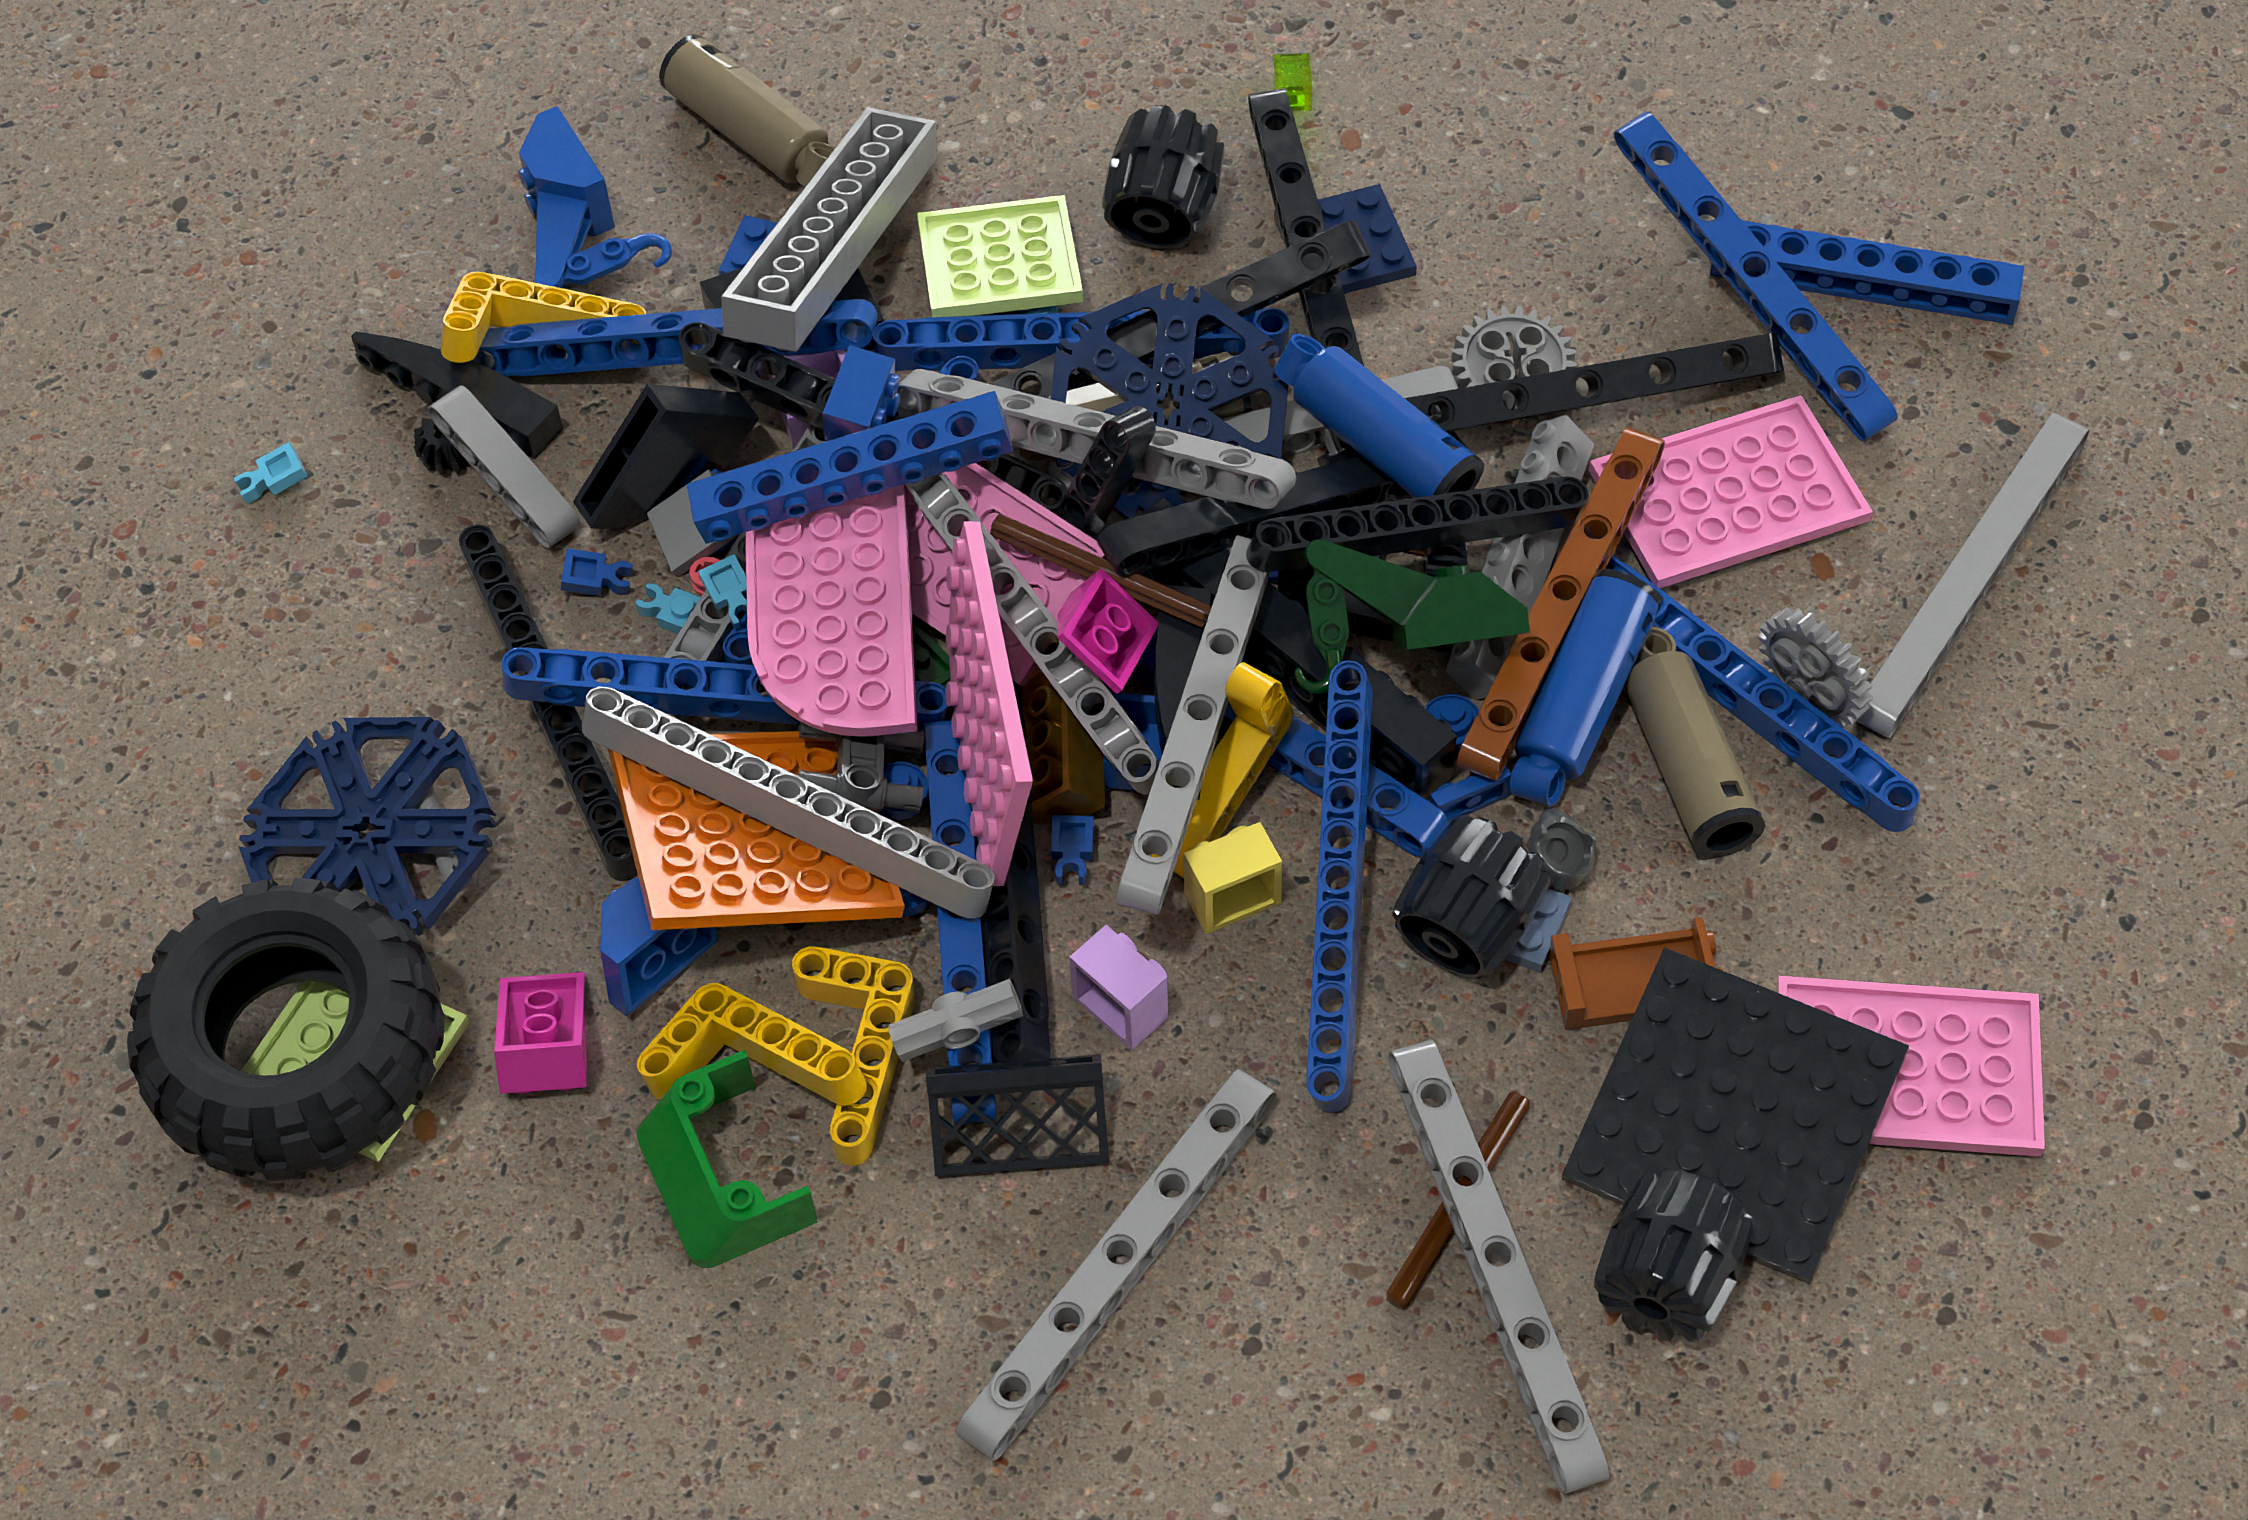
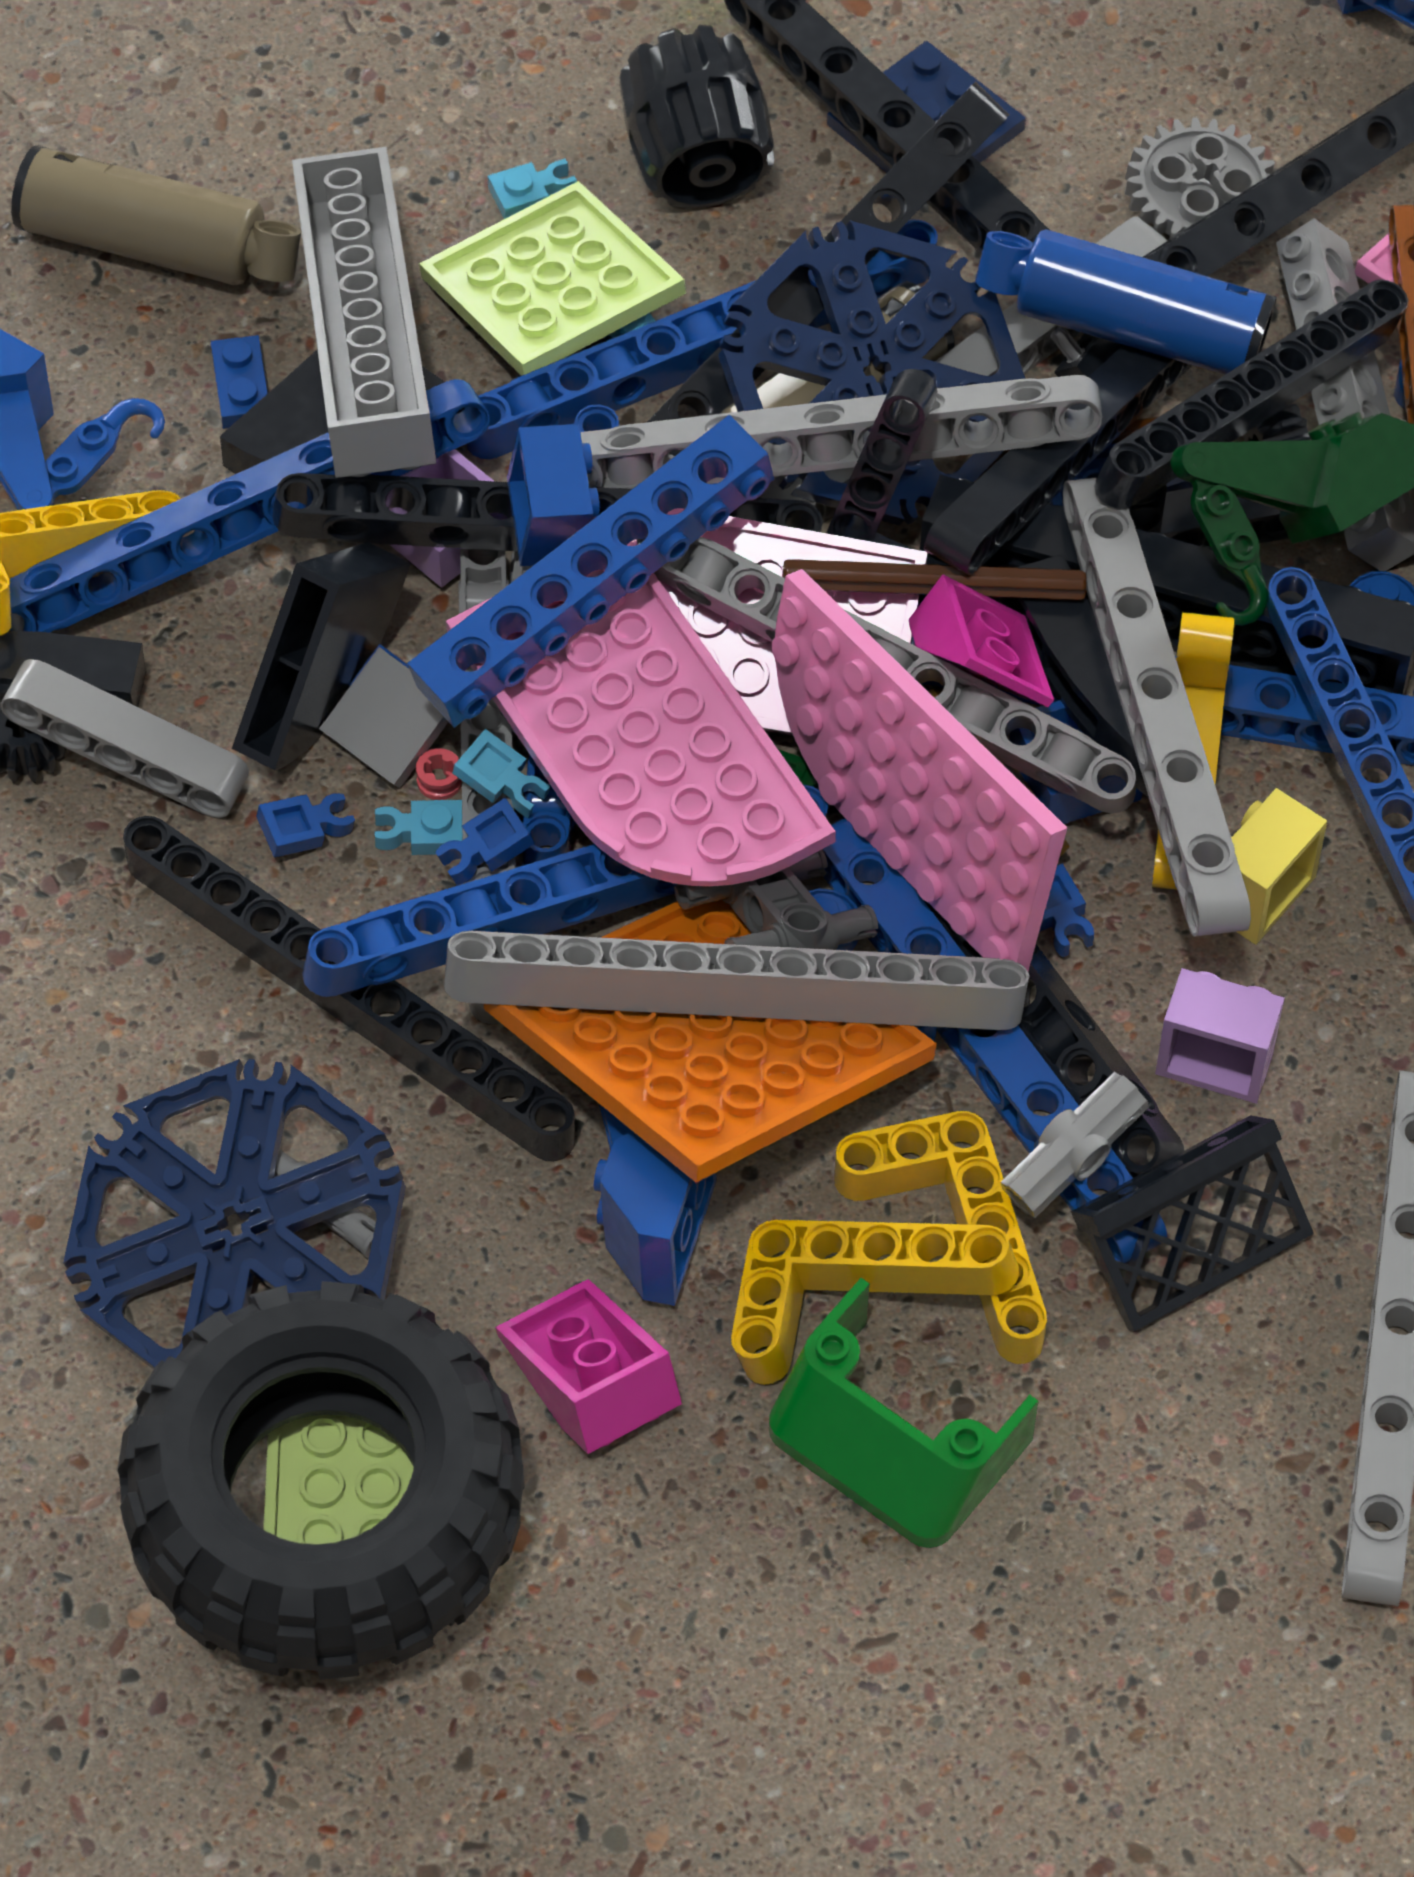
camera: 30 degrees left, 0 degrees up
(695, 635) = (492, 837): none -> blue plate
(1029, 184) = (524, 186): none -> medium azure plate

